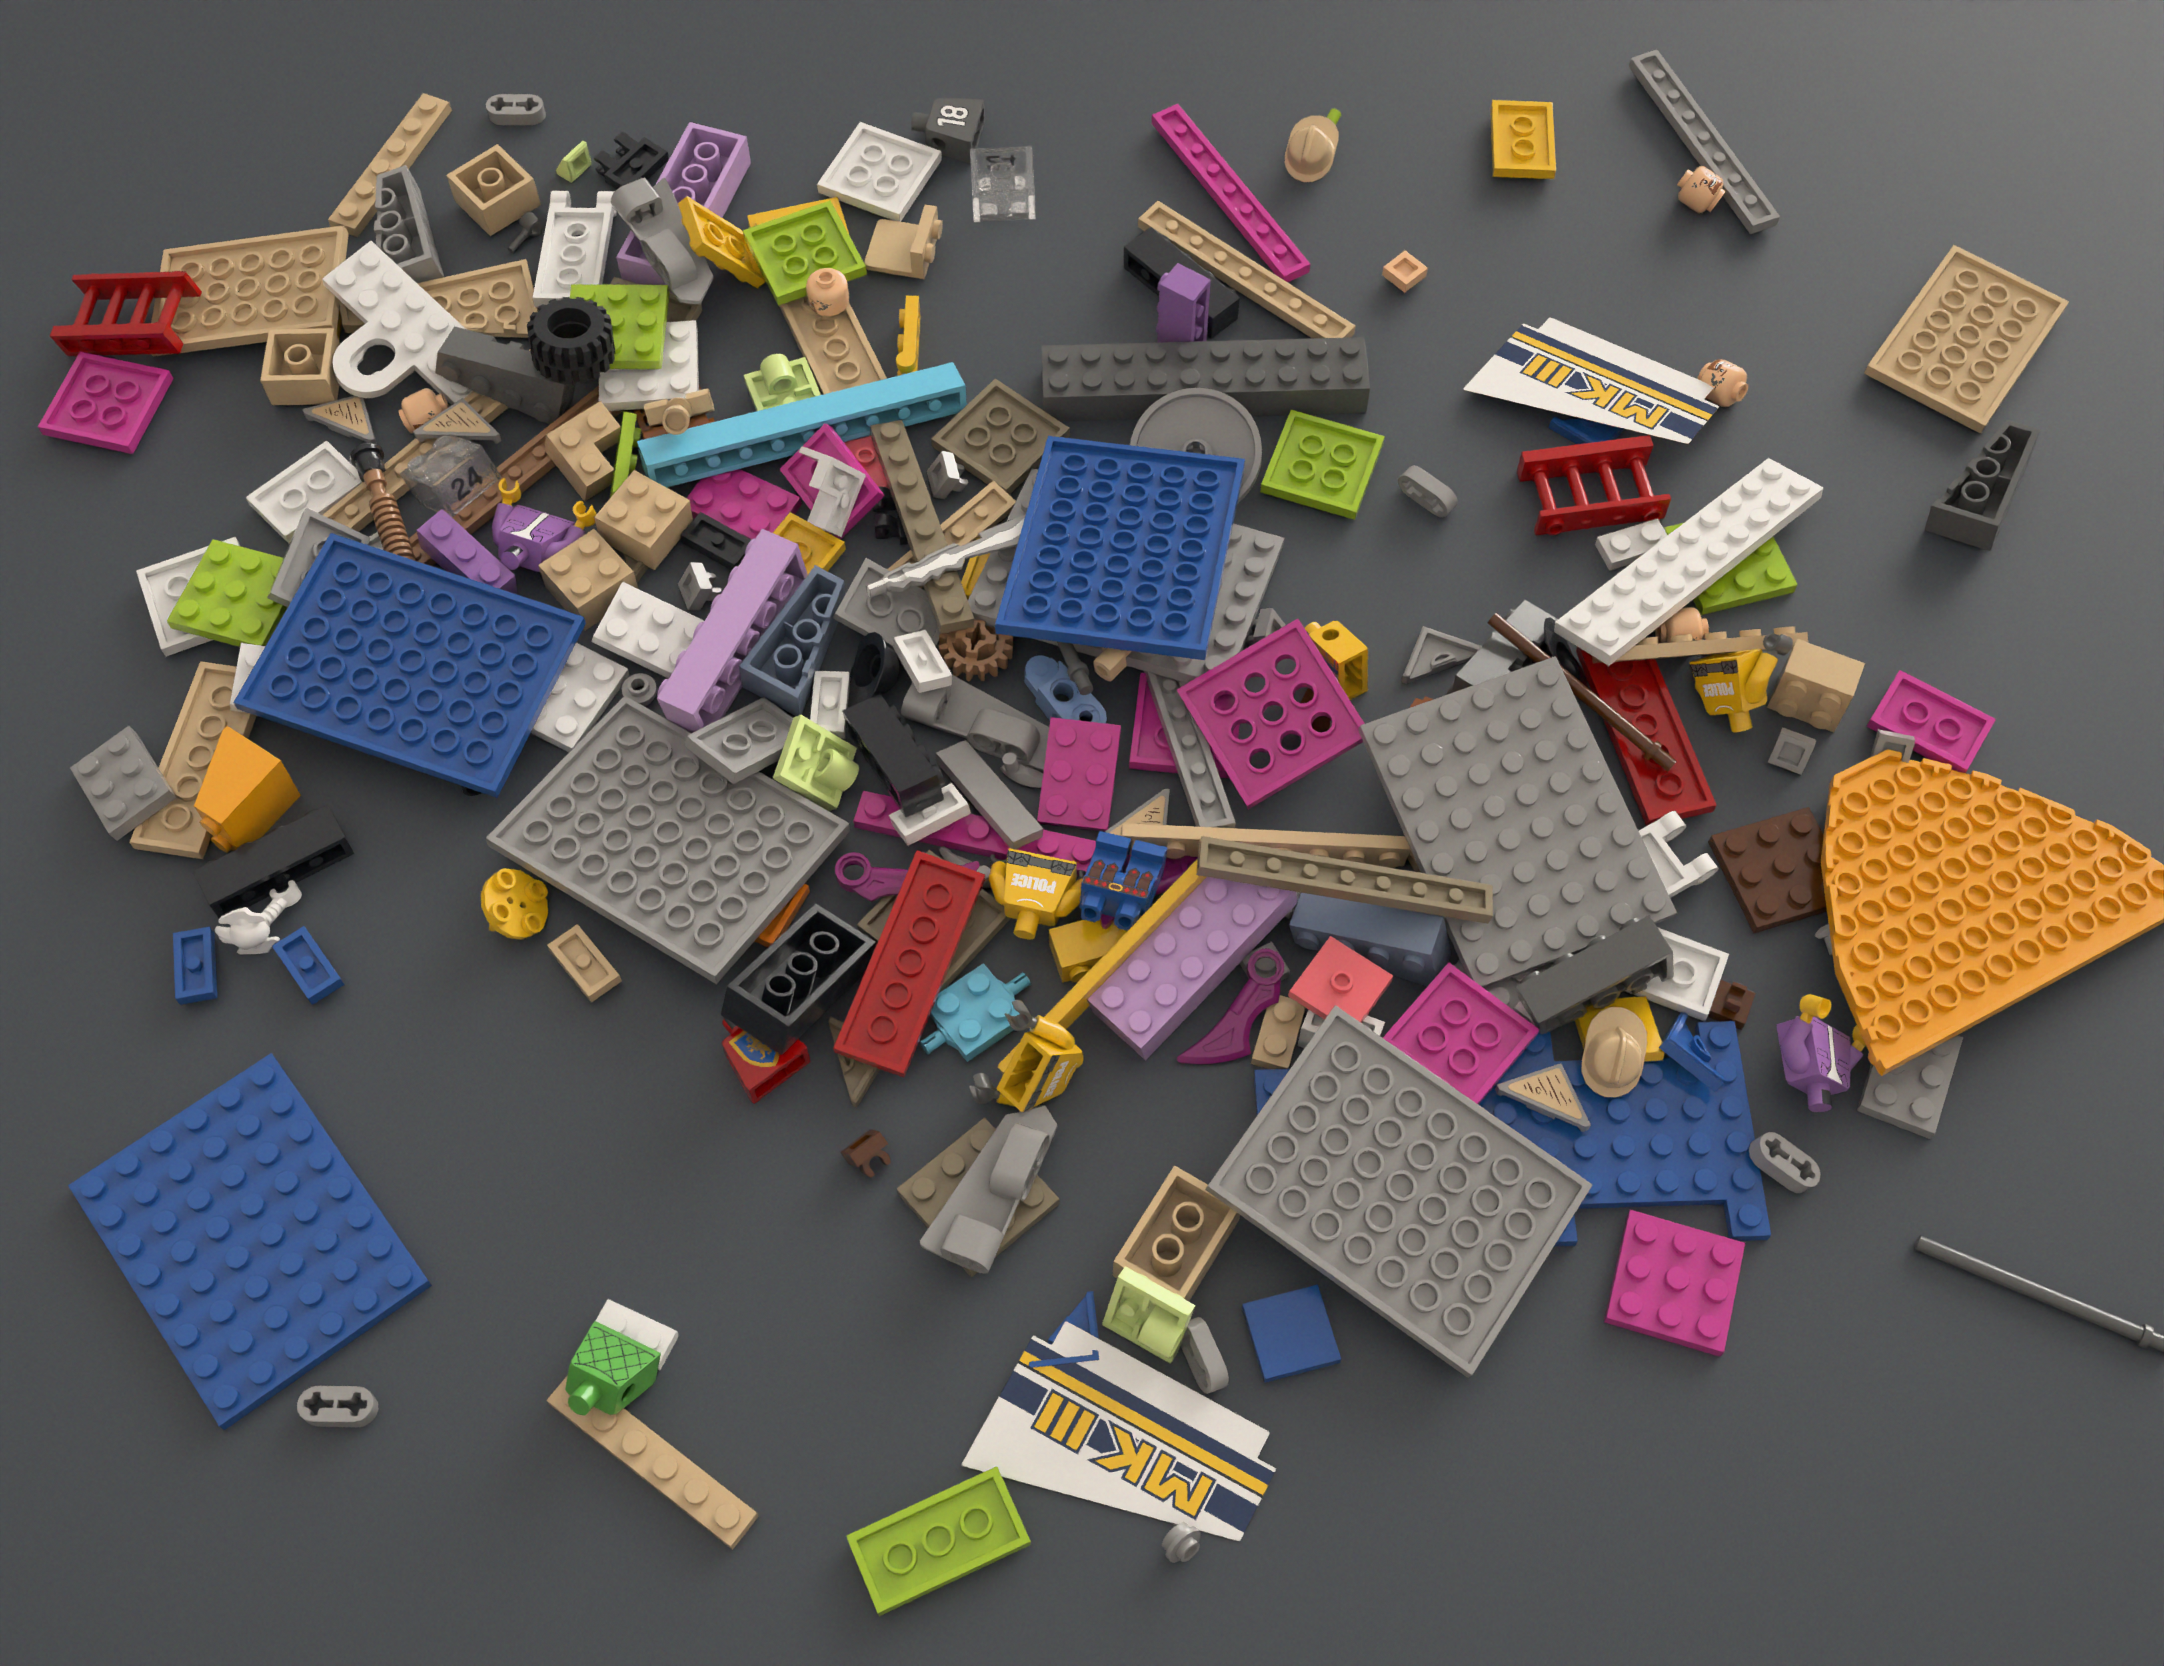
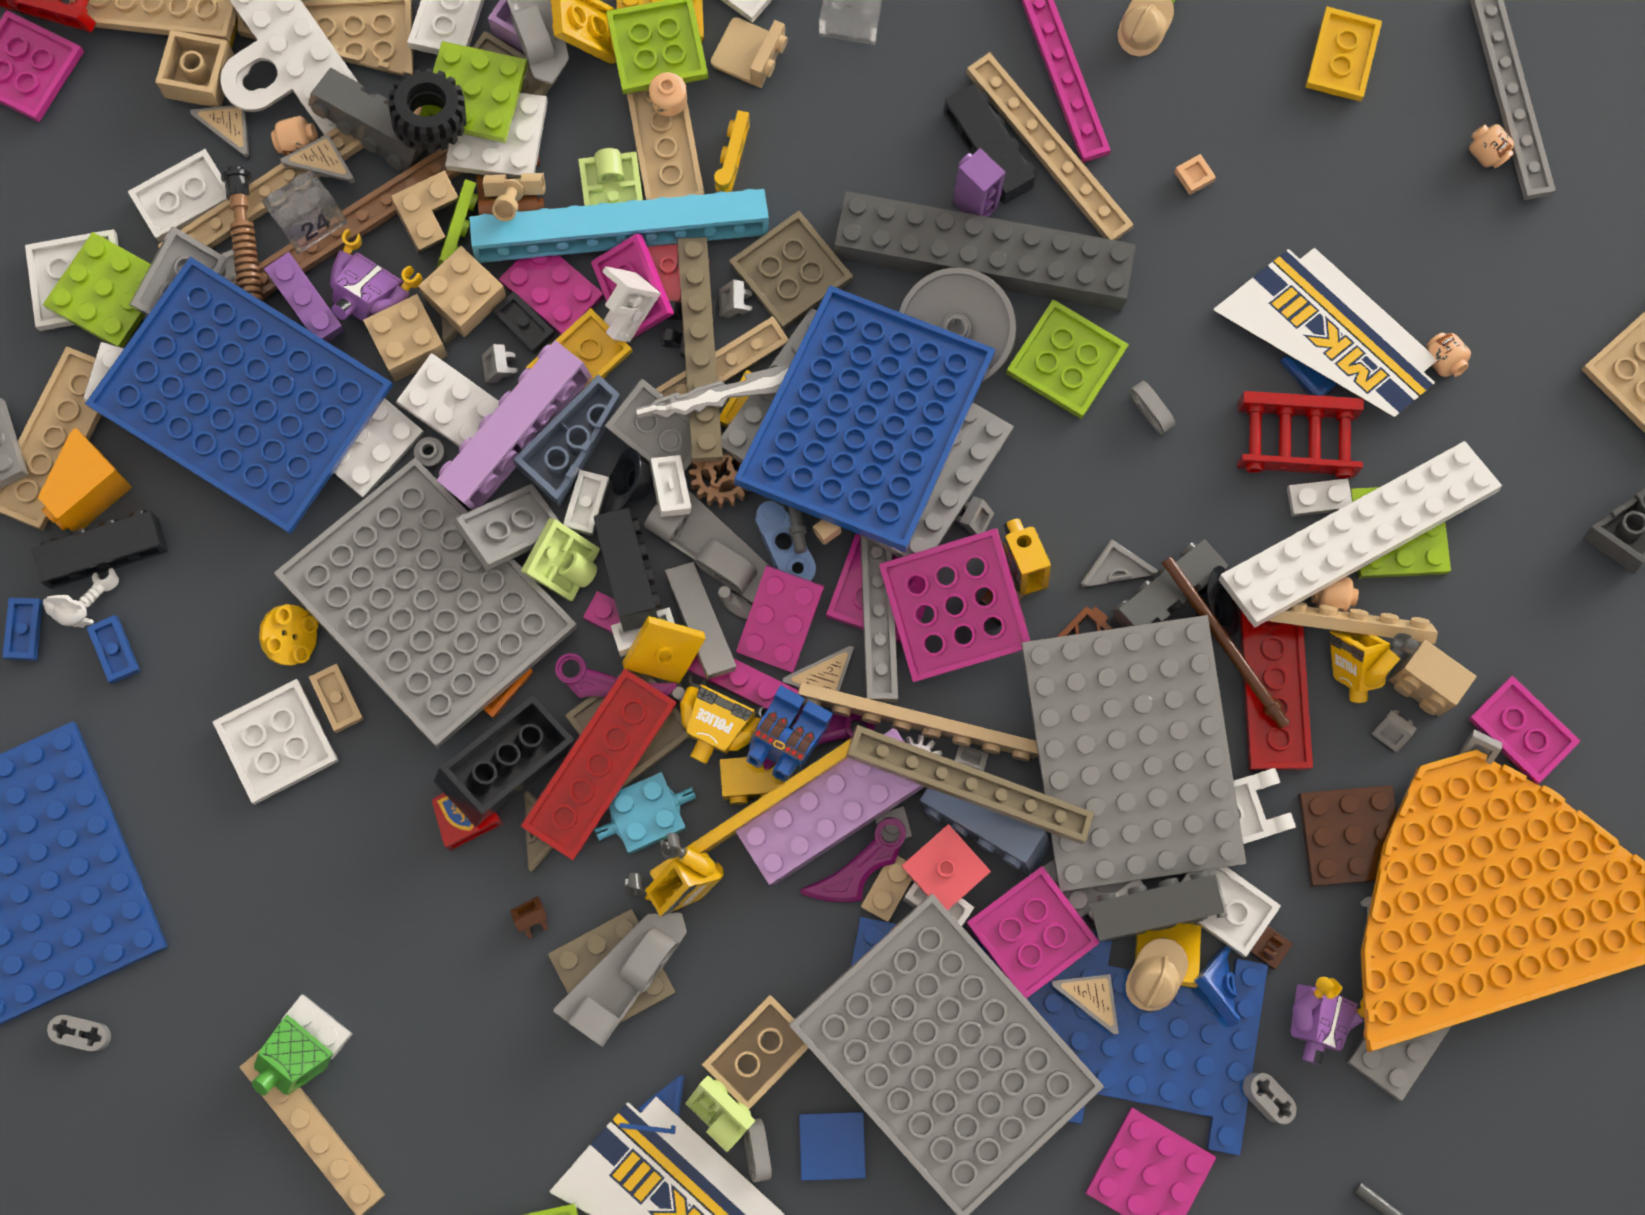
camera: 10 degrees right, 15 degrees up
(521, 1024) = (275, 741): none -> white plate
(956, 824) = (663, 650): none -> yellow plate

